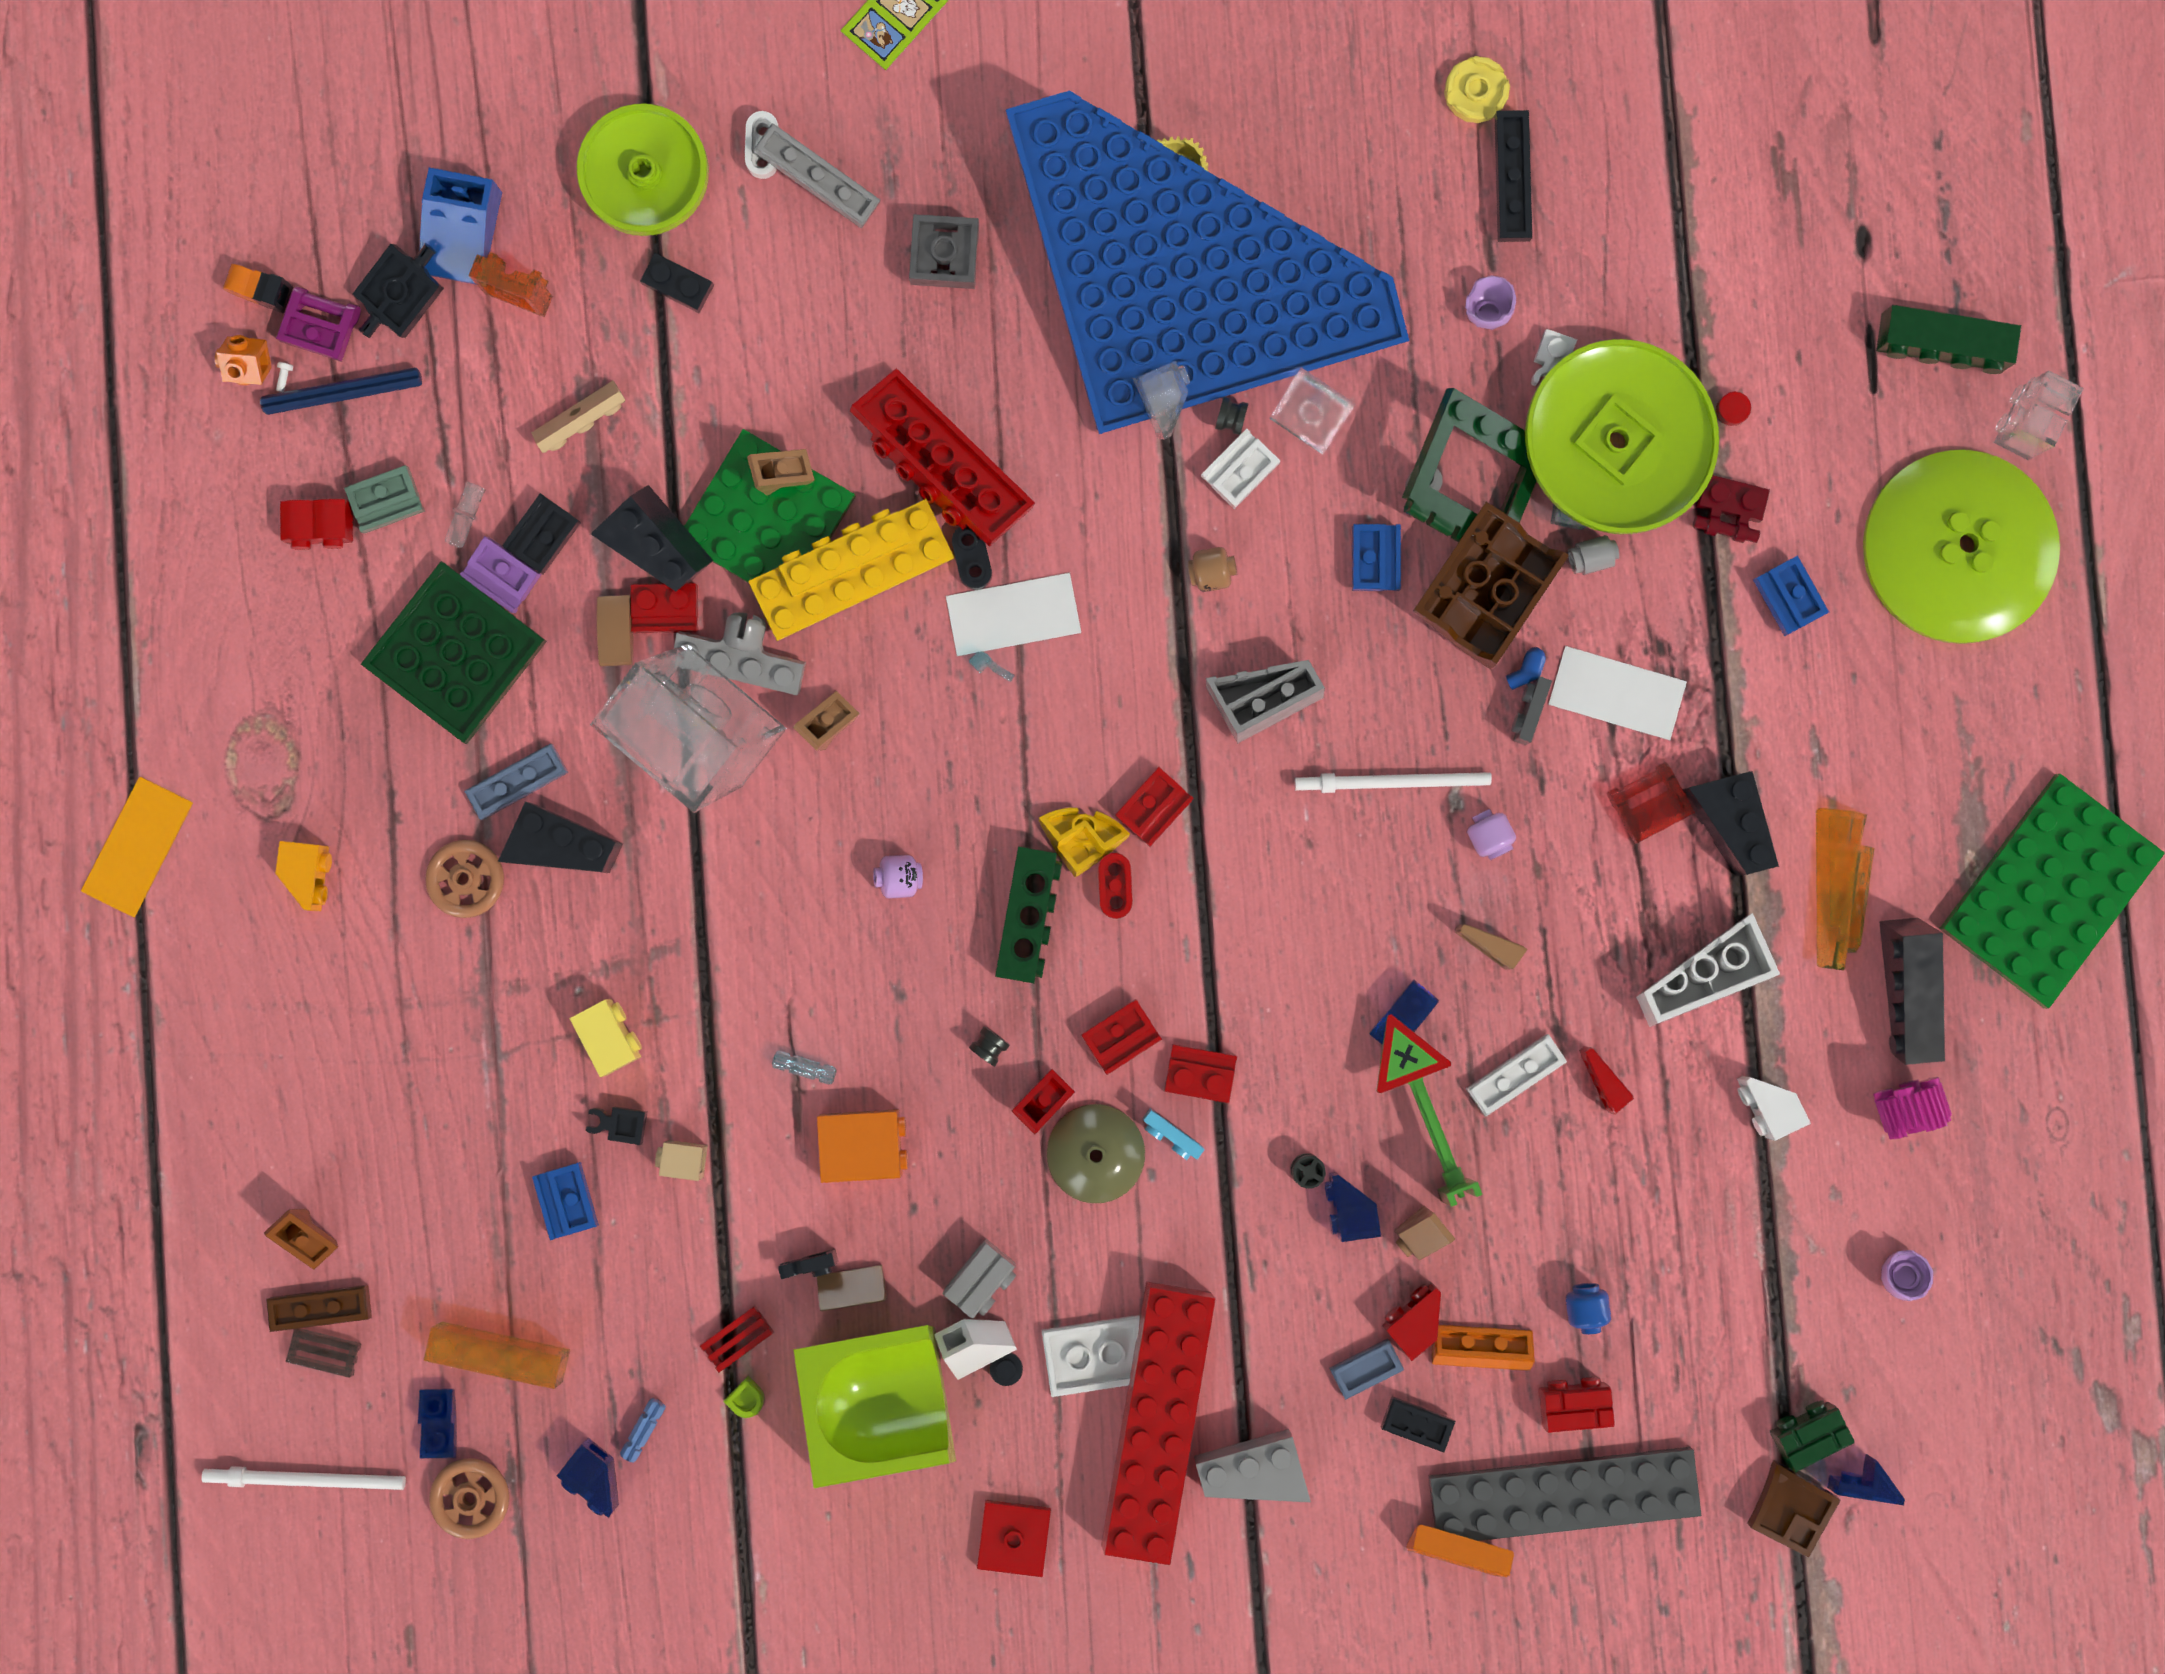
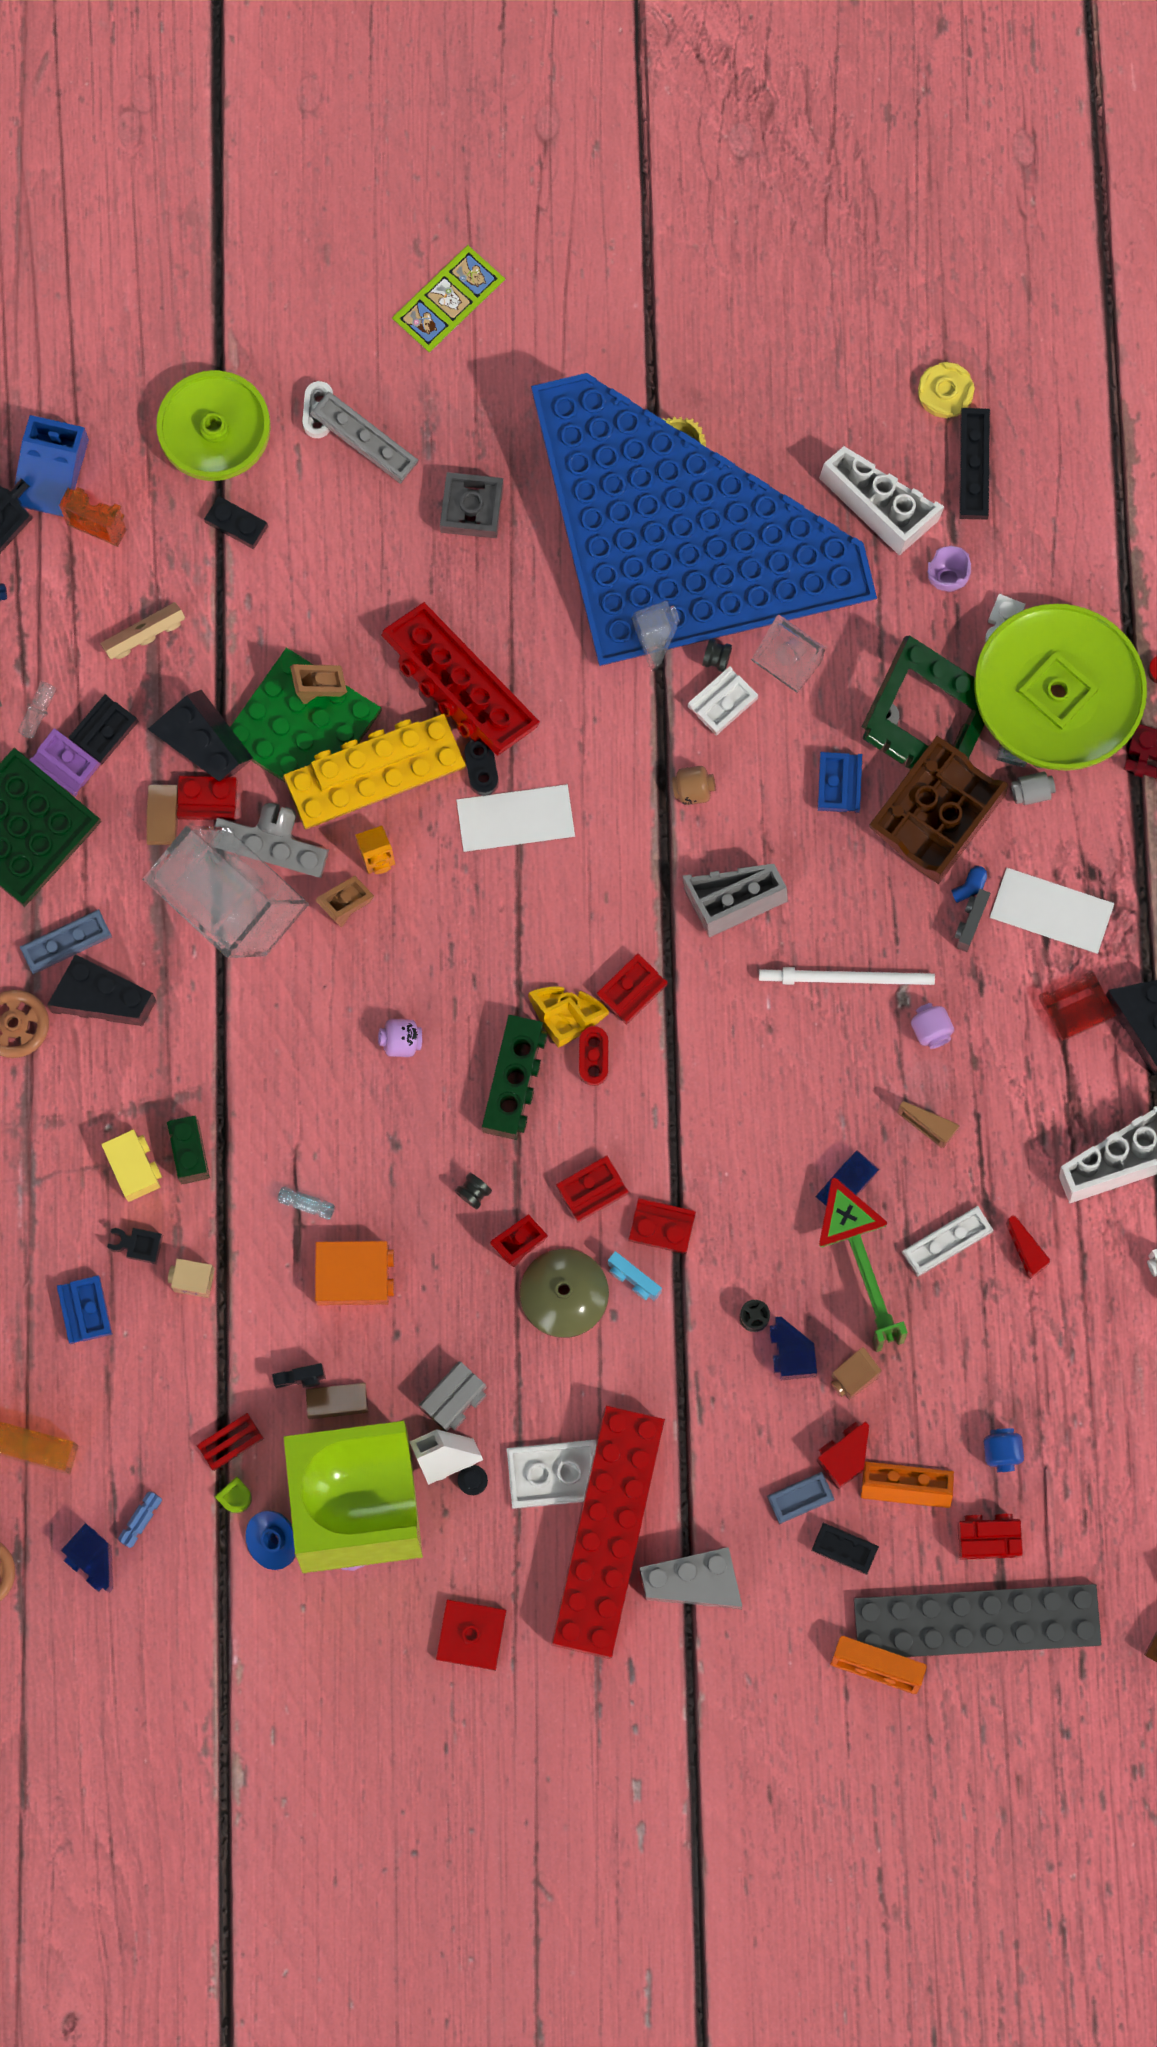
camera: 10 degrees right, 10 degrees down
(668, 1016) = (188, 1149): none -> dark green brick
(786, 1448) = (264, 1545): none -> blue dish
(857, 662) = (375, 850): none -> light orange slope
(982, 660) = (486, 855): clear light blue hand -> none
(1408, 224) = (880, 500): none -> white wedge

